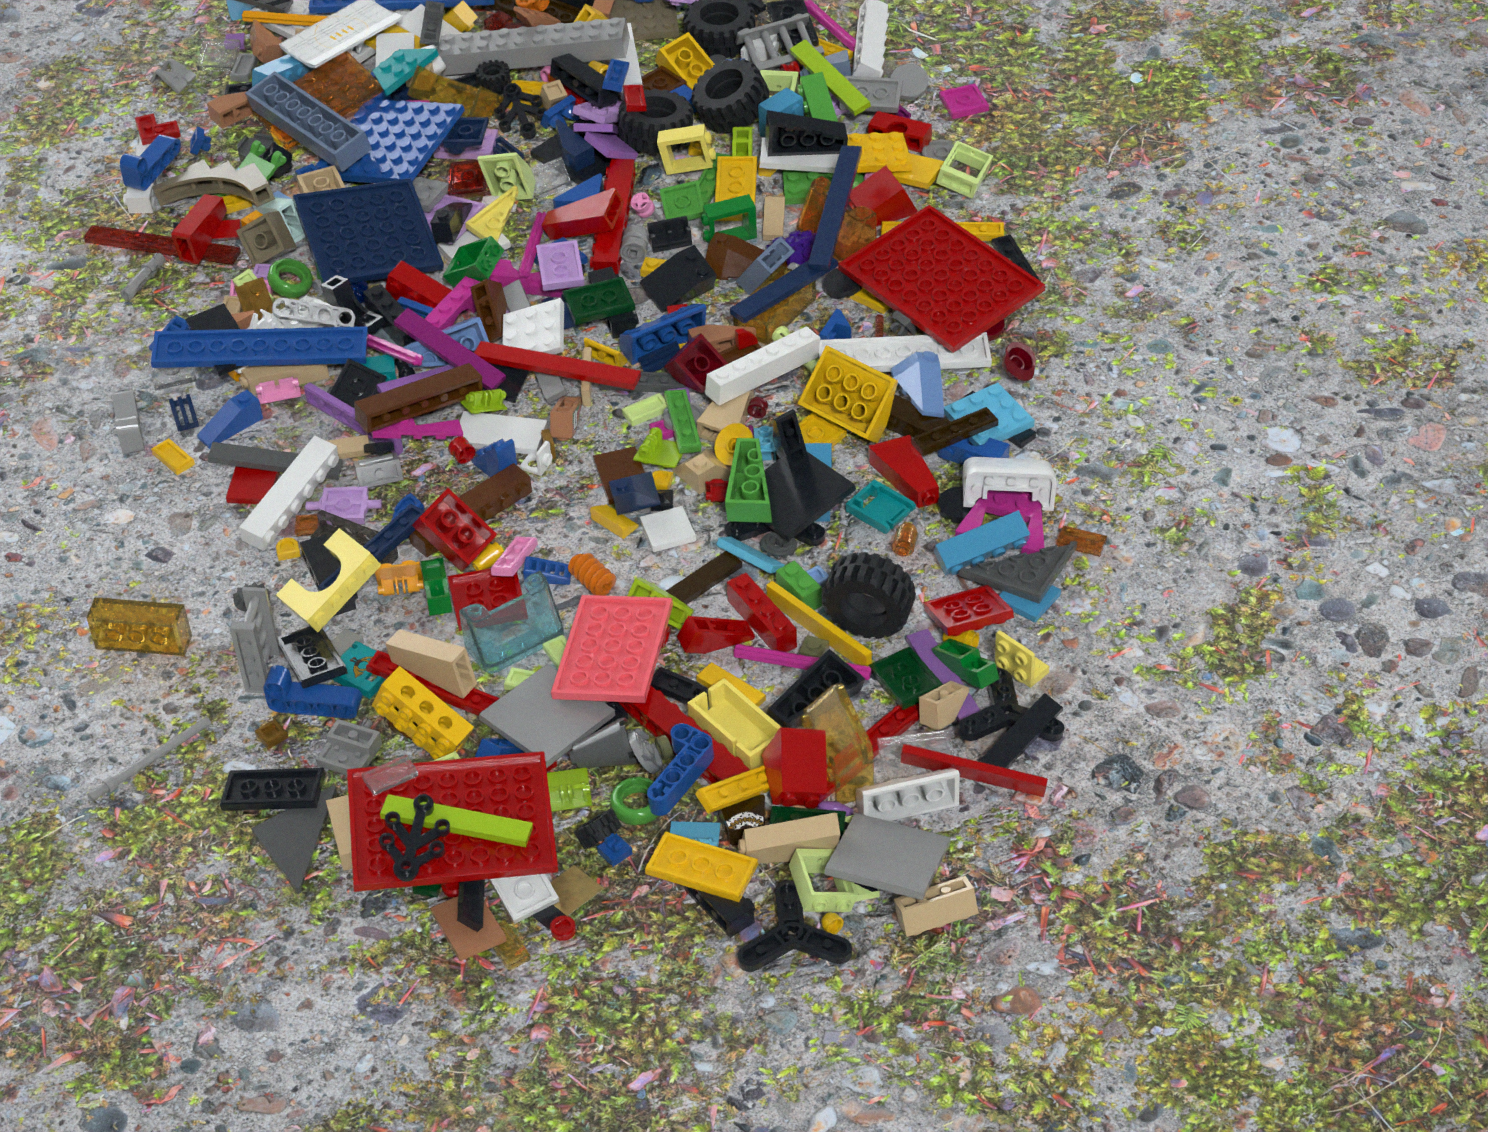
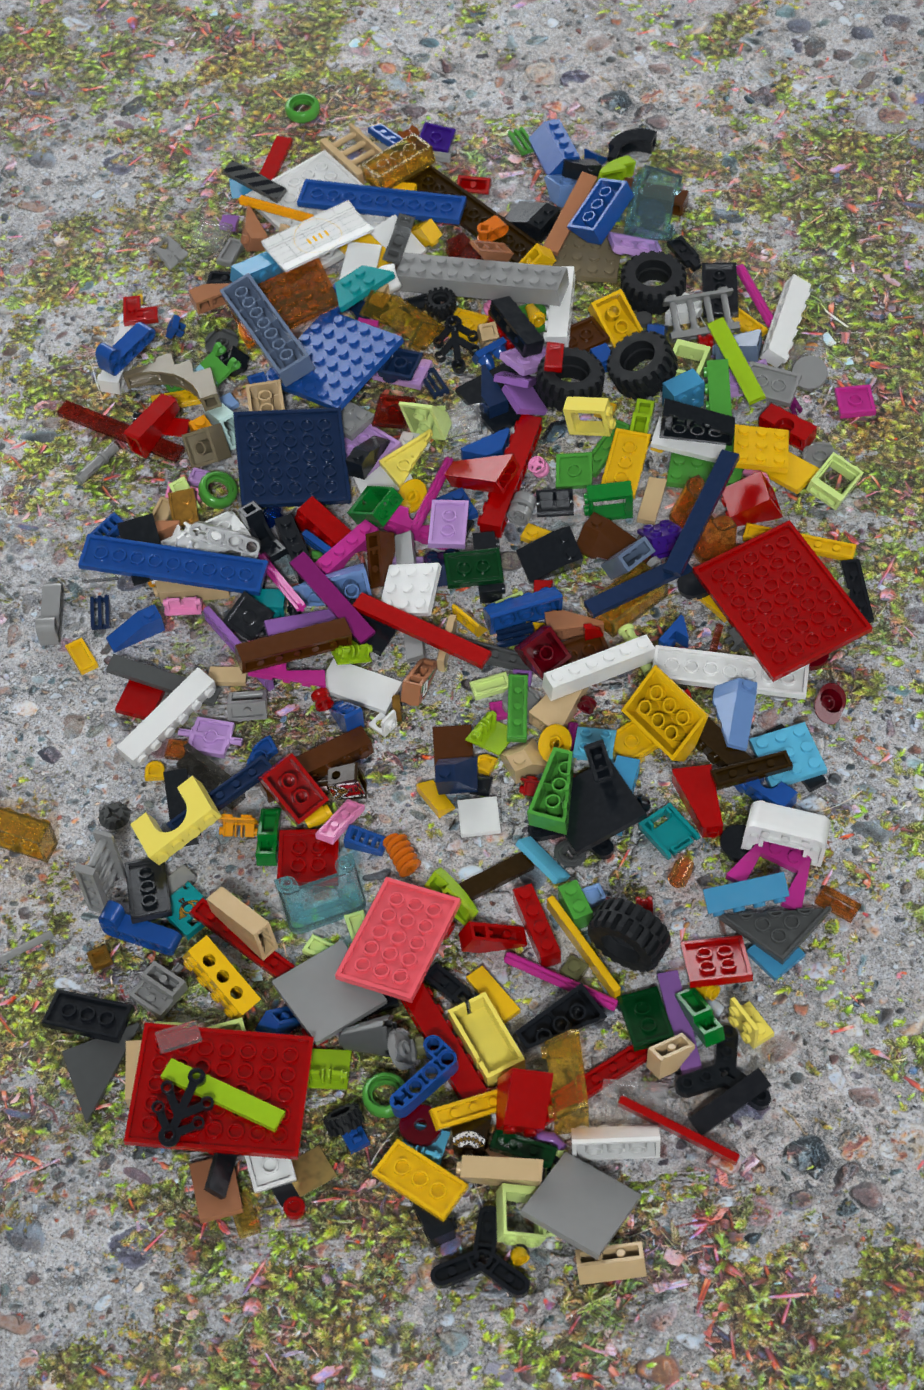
camera: 15 degrees right, 10 degrees up
(379, 448) = (252, 683): black tile -> none
(511, 518) = (345, 782): none -> dark brown torso
(514, 248) = (413, 494): none -> yellow dish
(616, 75) = (544, 328): blue tile -> none
(687, 810) = (419, 1137): none -> dark red tile

